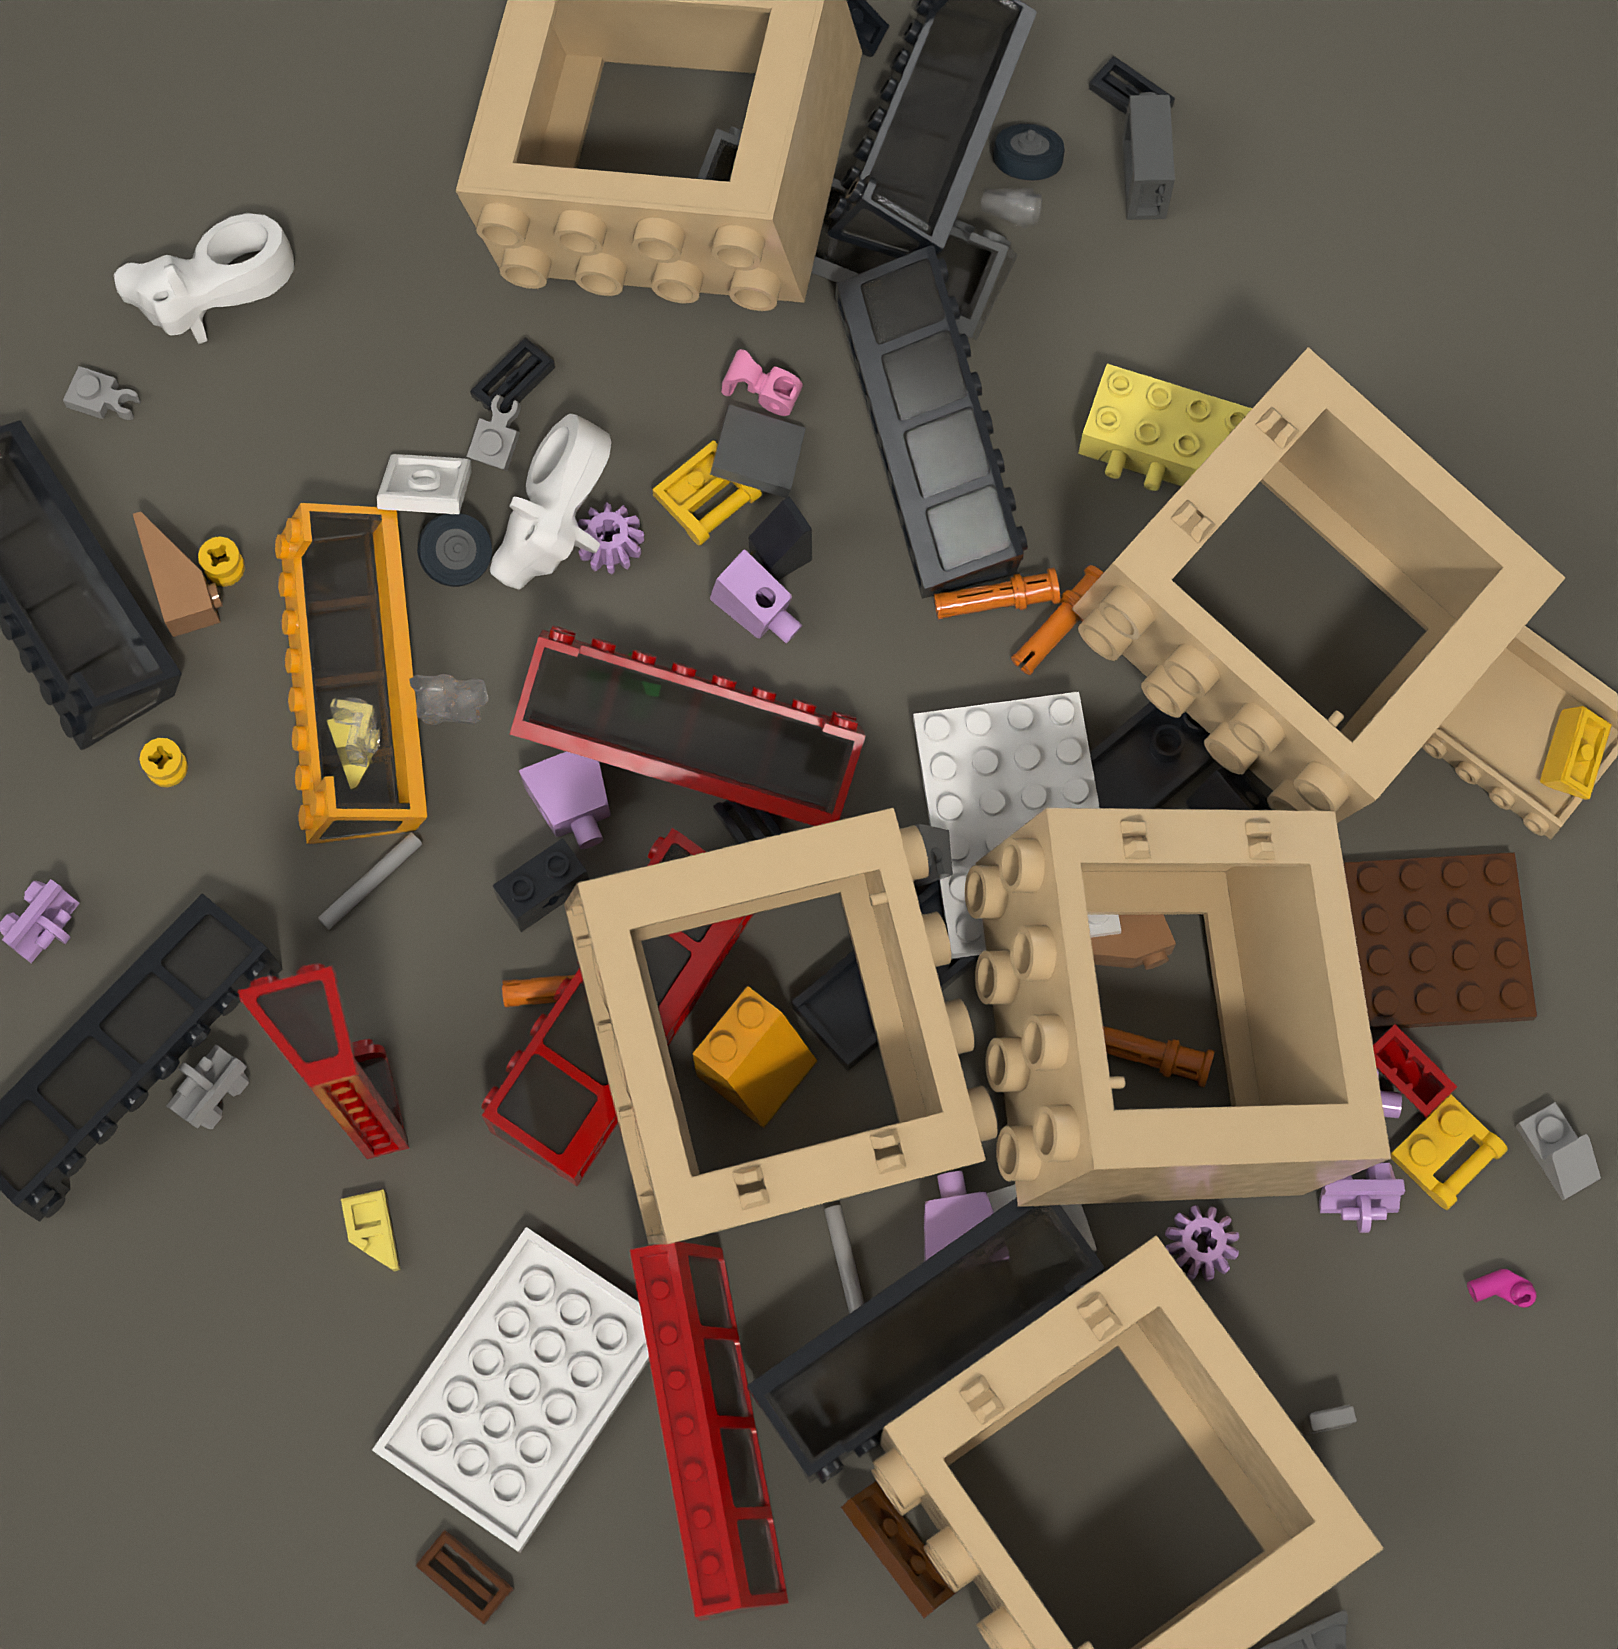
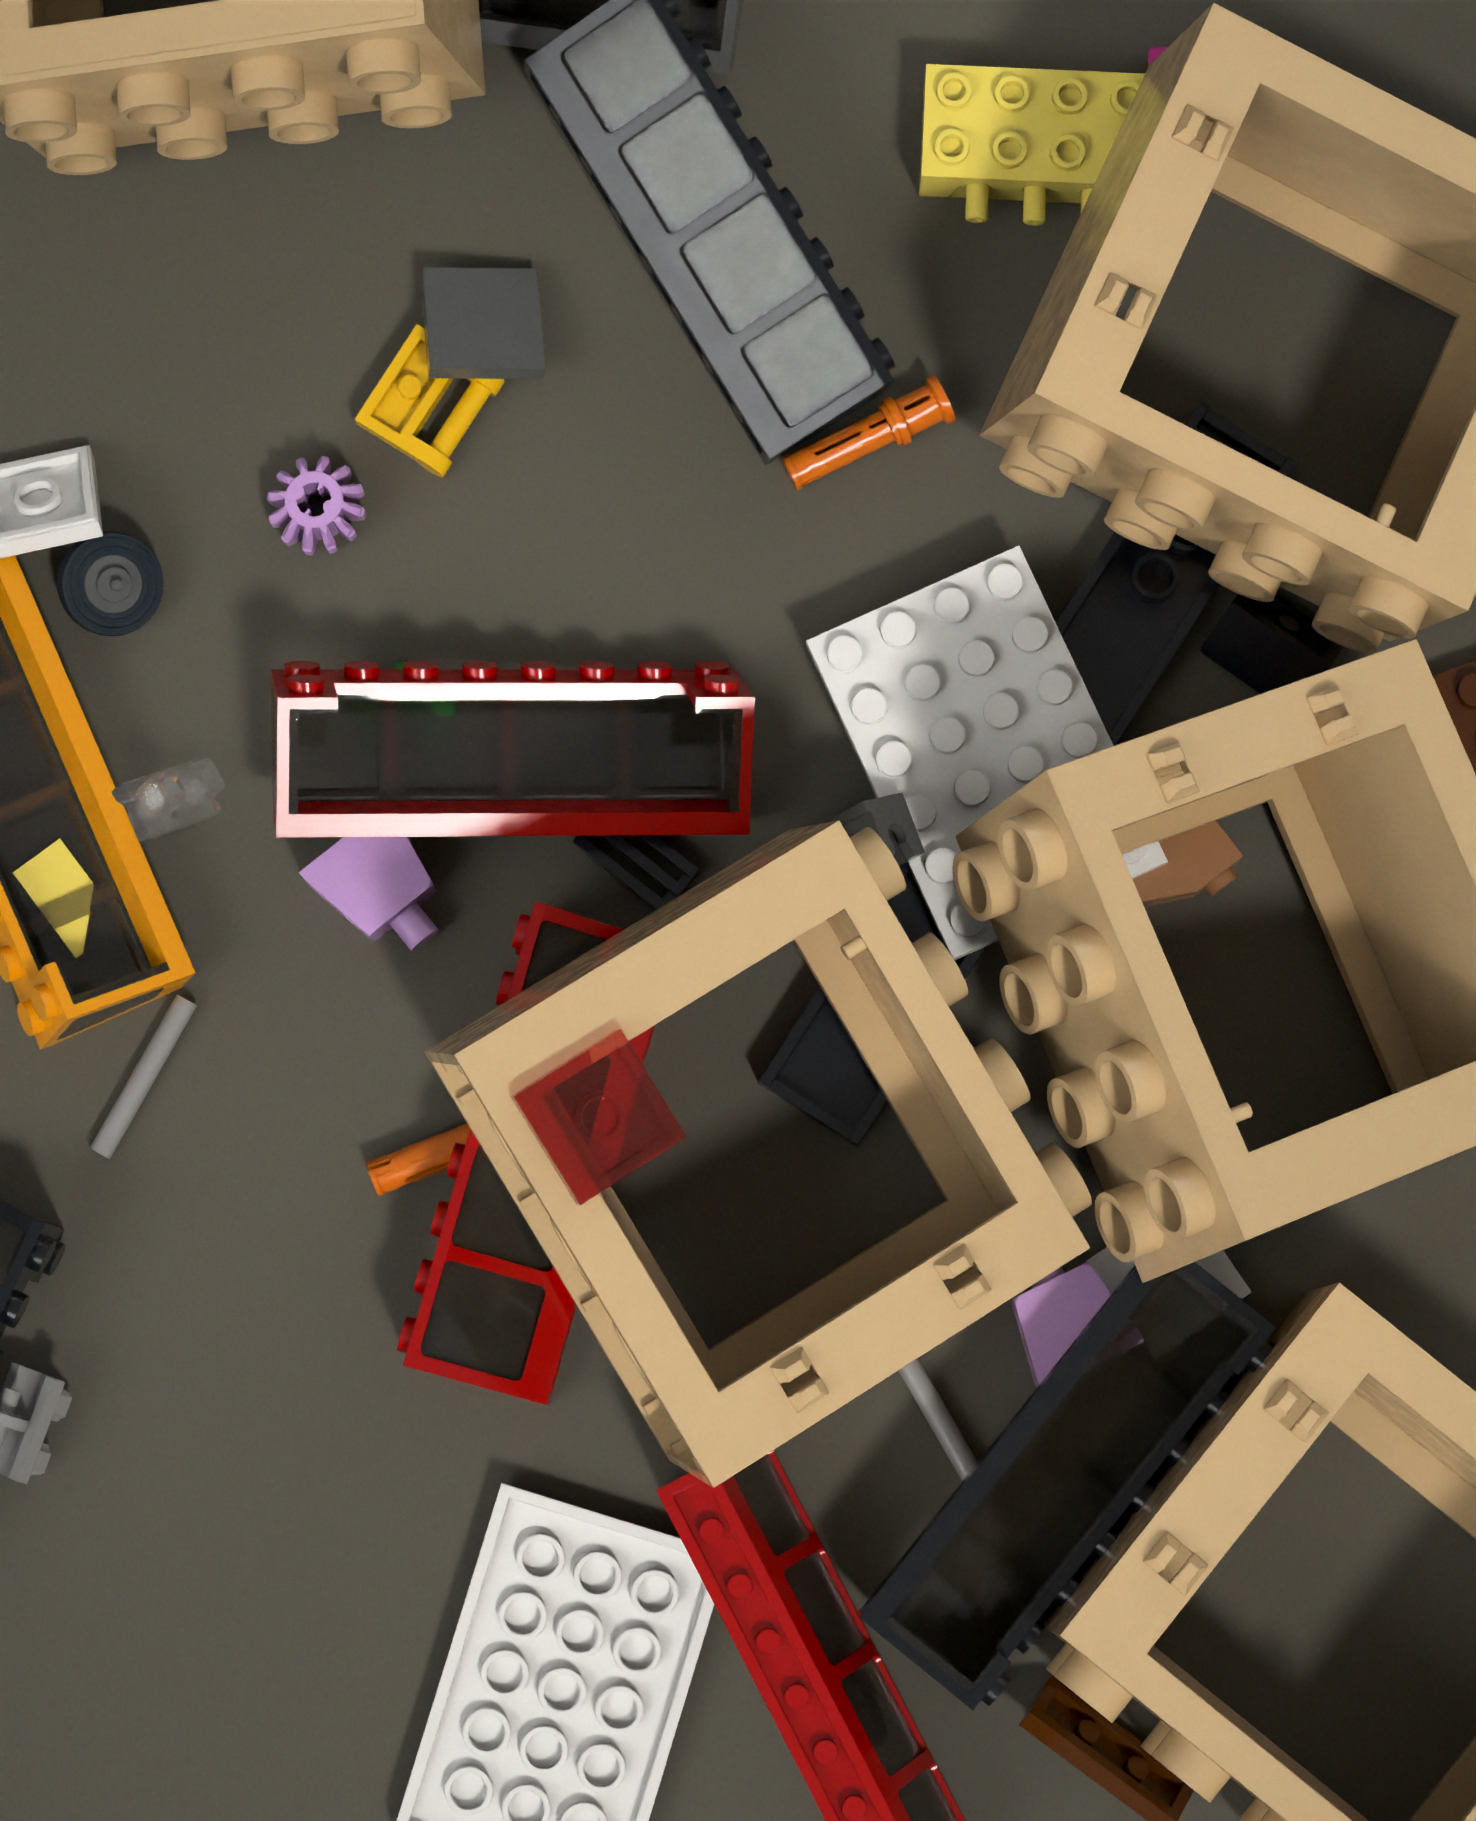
camera: 15 degrees left, 10 degrees up
(348, 1077) = (190, 1369): red window -> none
(363, 735) = (72, 885): clear bracket -> none
(371, 1226) = (296, 1540): light yellow tile -> none
(494, 440) = (114, 410): light grey plate -> none
(504, 366) = (130, 319): black tile -> none
(540, 884) = (377, 1018): black brick -> none
(557, 484) = (227, 449): white animal -> none
(664, 956) = (598, 1116): none -> clear red tile
(744, 588) = (520, 533): lavender torso -> none
(753, 1057) = (735, 1174): light orange slope -> none
(776, 389) = (480, 224): bright pink leg -> none
(782, 540) = (553, 448): black slope -> none
(1057, 625) = (962, 449): orange pin -> none
(1168, 1057) = (1271, 1008): orange pin -> none
(1215, 1237) = (1371, 1258): lavender gear -> none

